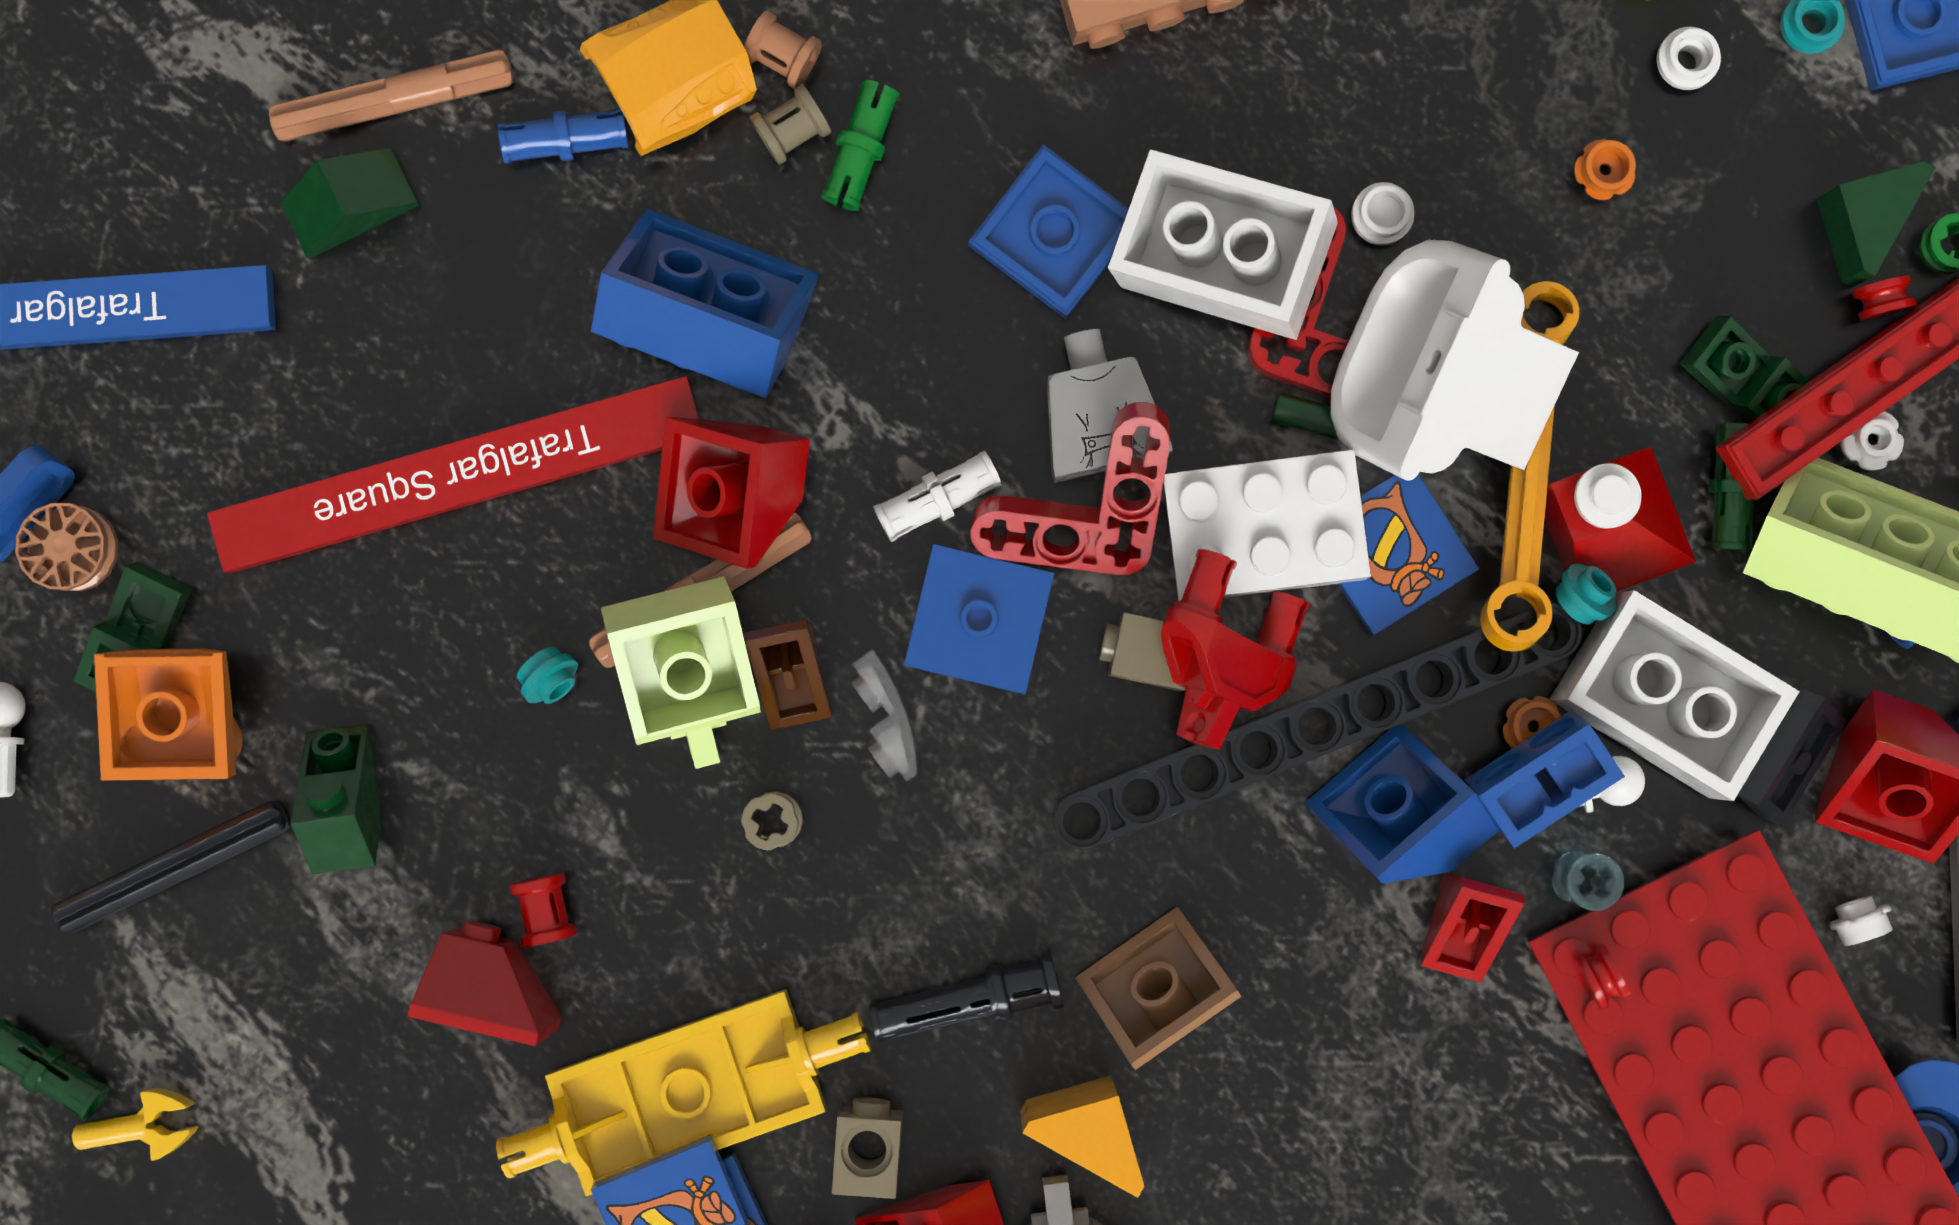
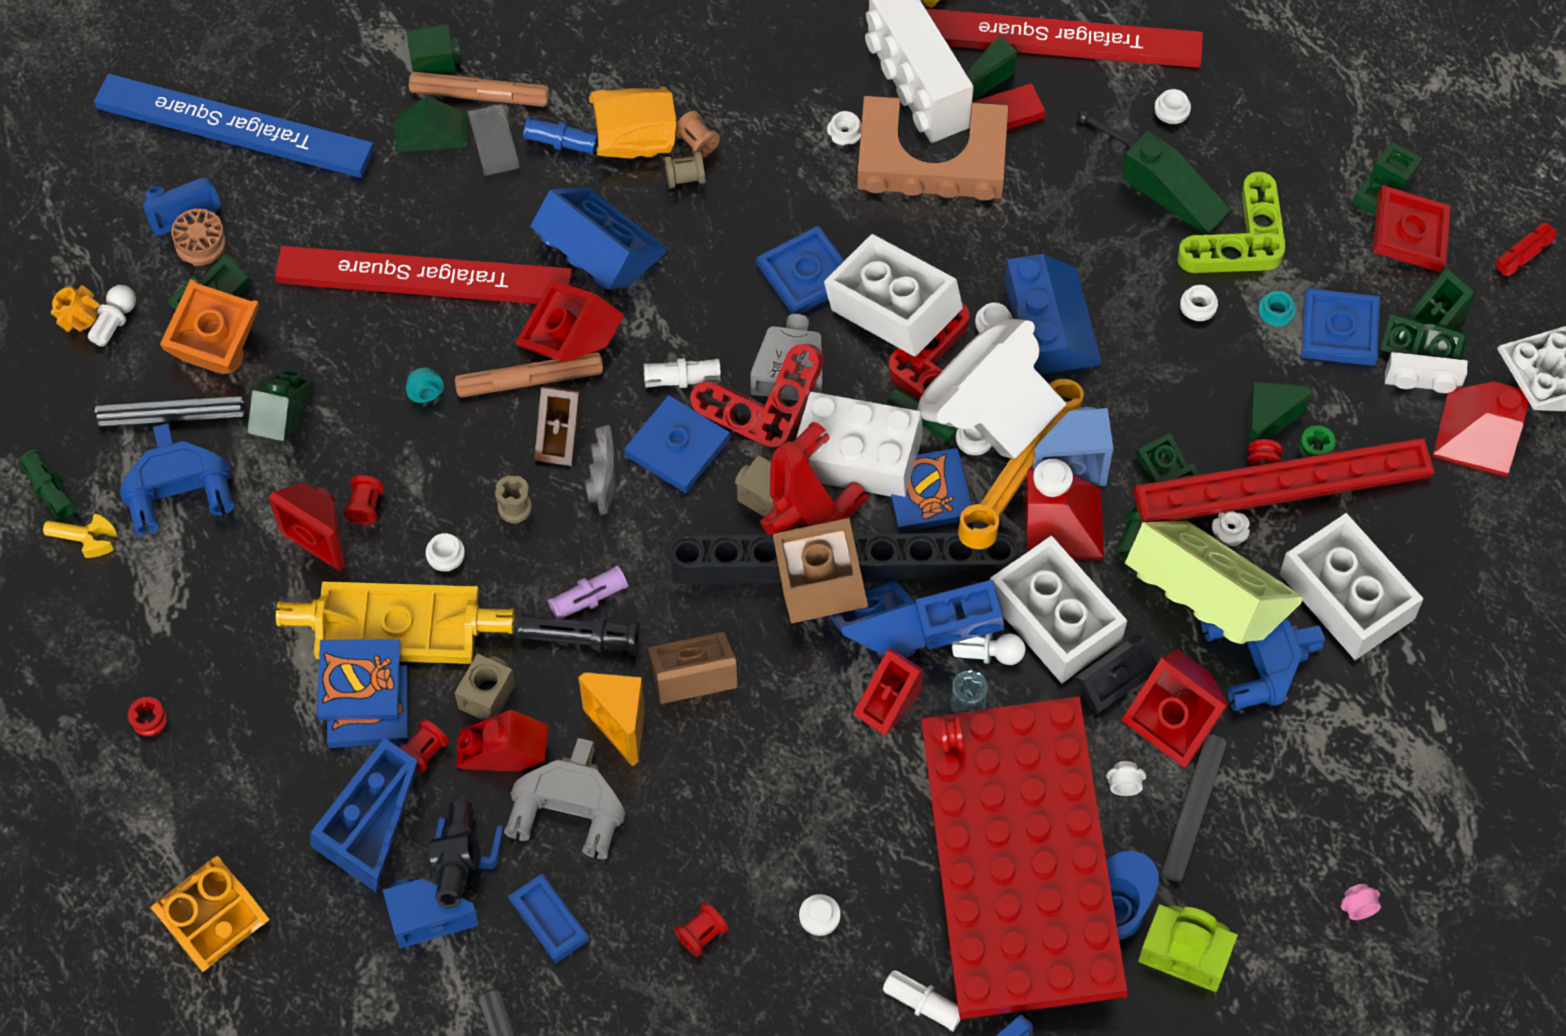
camera: 20 degrees right, 25 degrees down
(220, 973) = (171, 471): none -> blue connector
(285, 56) = (433, 50): none -> dark green brick
(456, 179) = (493, 139): none -> clear tile
(682, 664) = (500, 397): yellowish green hinge -> none
(705, 943) = (445, 552): none -> white plate
(860, 145) = (718, 193): green pin -> none
(950, 929) = (565, 603): none -> lavender pin
(1303, 785) = (820, 570): none -> medium nougat slope
(1468, 167) = (1052, 299): none -> blue slope
(1587, 593) = (1025, 534): teal plate -> none
(1612, 408) = (1082, 442): none -> medium blue slope
(1617, 158) = (1133, 333): orange plate -> none

